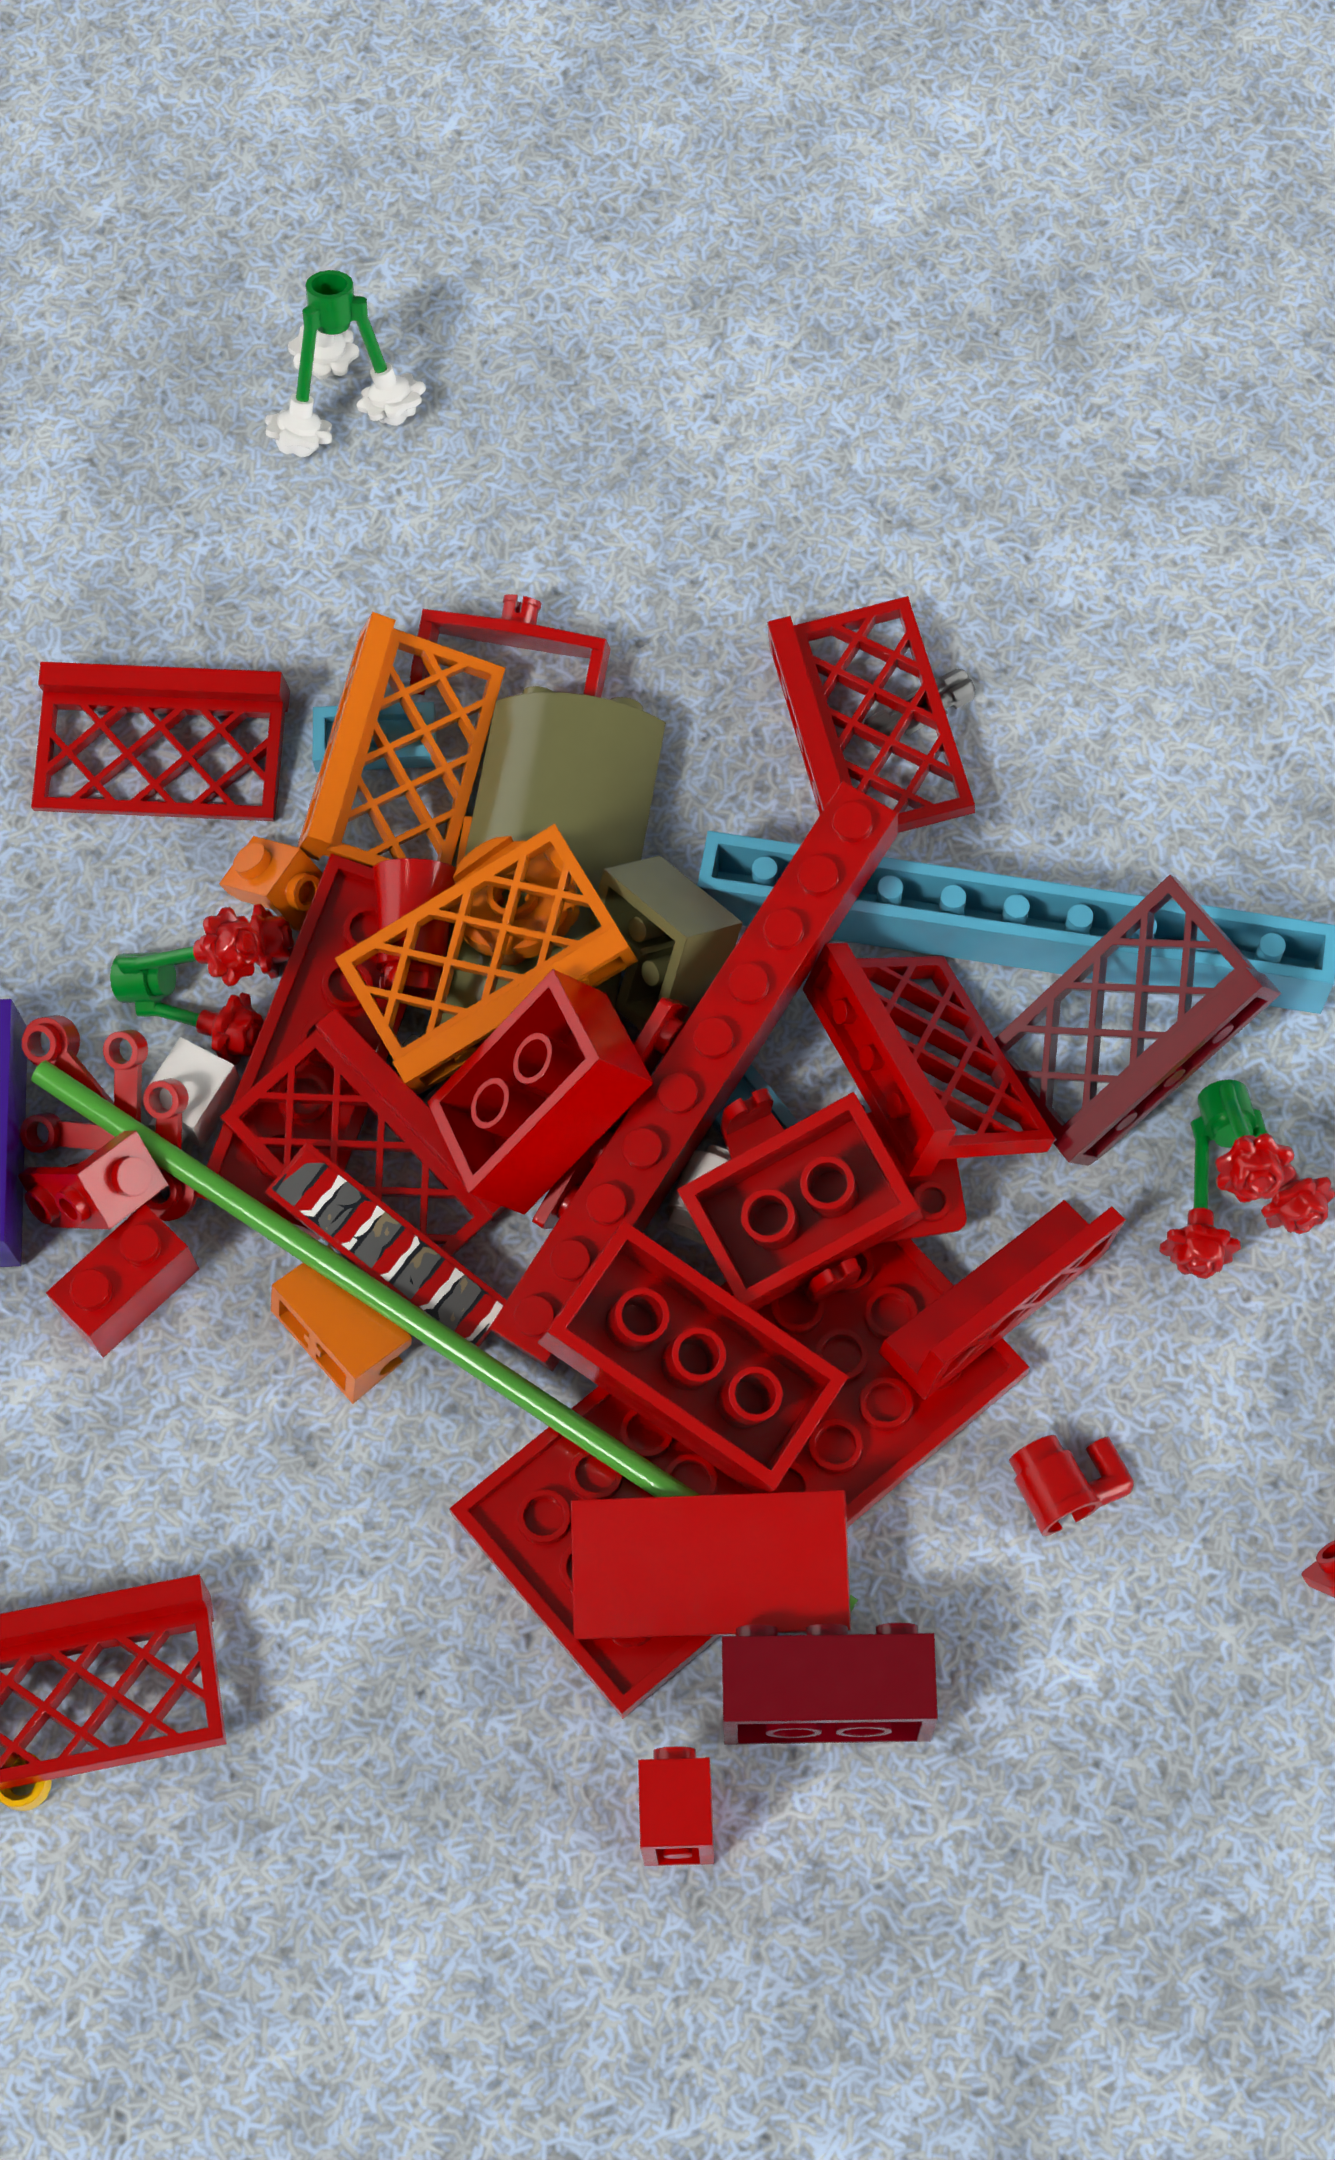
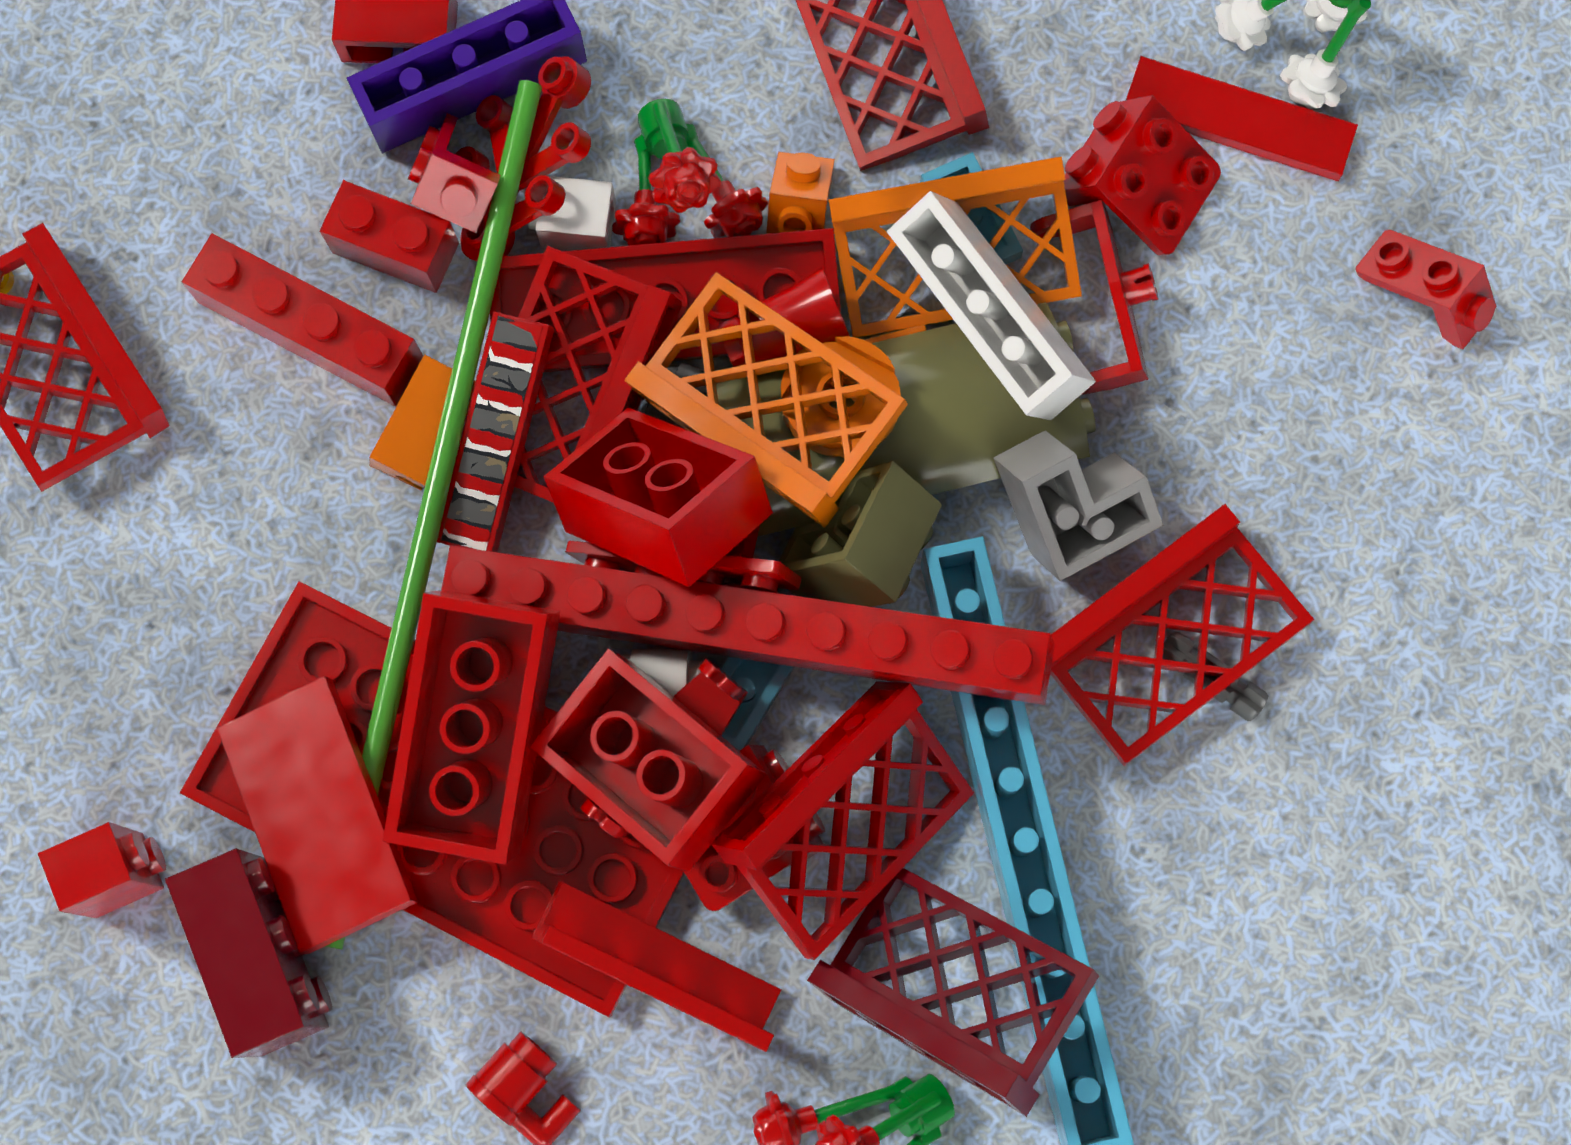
camera: 65 degrees right, 10 degrees up
(169, 1400) = (303, 319): none -> red brick
(392, 475) = (1247, 119): none -> red tile
(403, 567) = (1143, 171): none -> red bracket
(489, 727) = (990, 306): none -> white brick
(629, 377) = (1434, 277): none -> red bracket
(708, 748) = (1075, 513): none -> light grey brick

